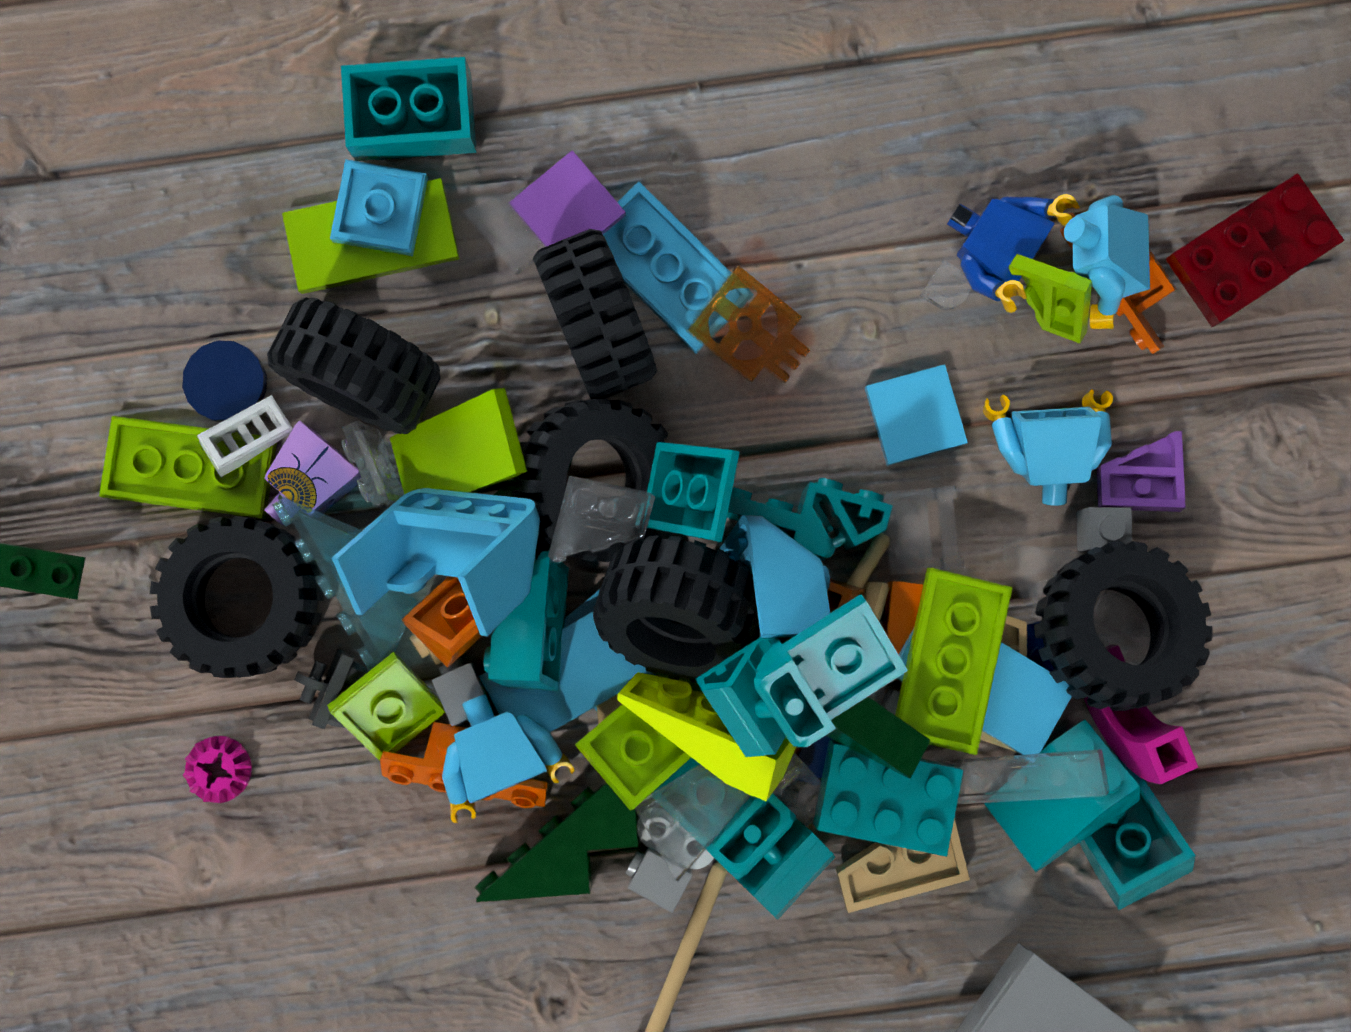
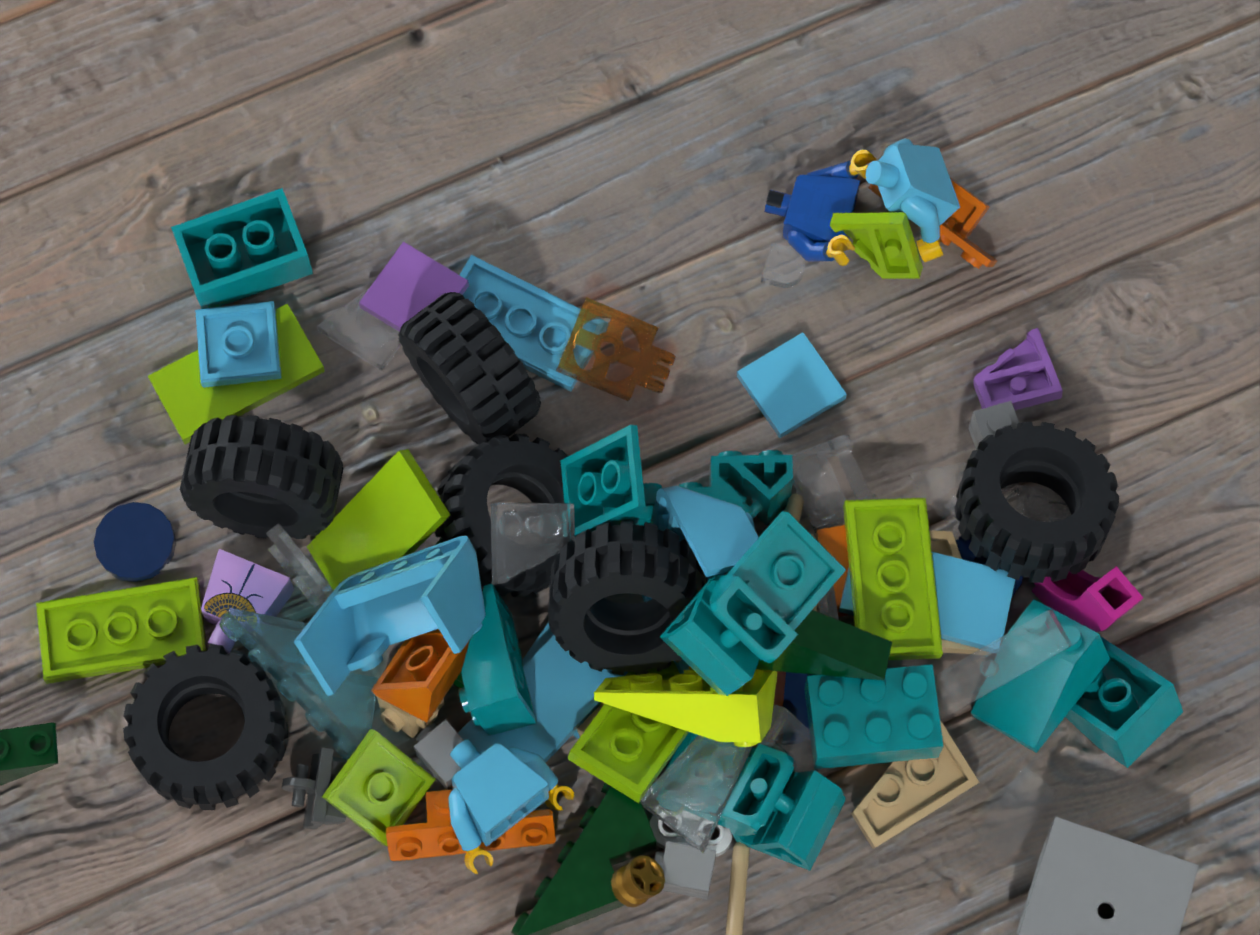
camera: 15 degrees left, 15 degrees down
(234, 761) = (241, 915): dark pink gear -> none
(239, 456) = (167, 602): white slope -> none
(615, 877) = (638, 881): none -> pearl gold wheel
(1054, 444) = (923, 370): medium azure torso -> none
(1254, 250) = (1045, 154): dark red piece -> none

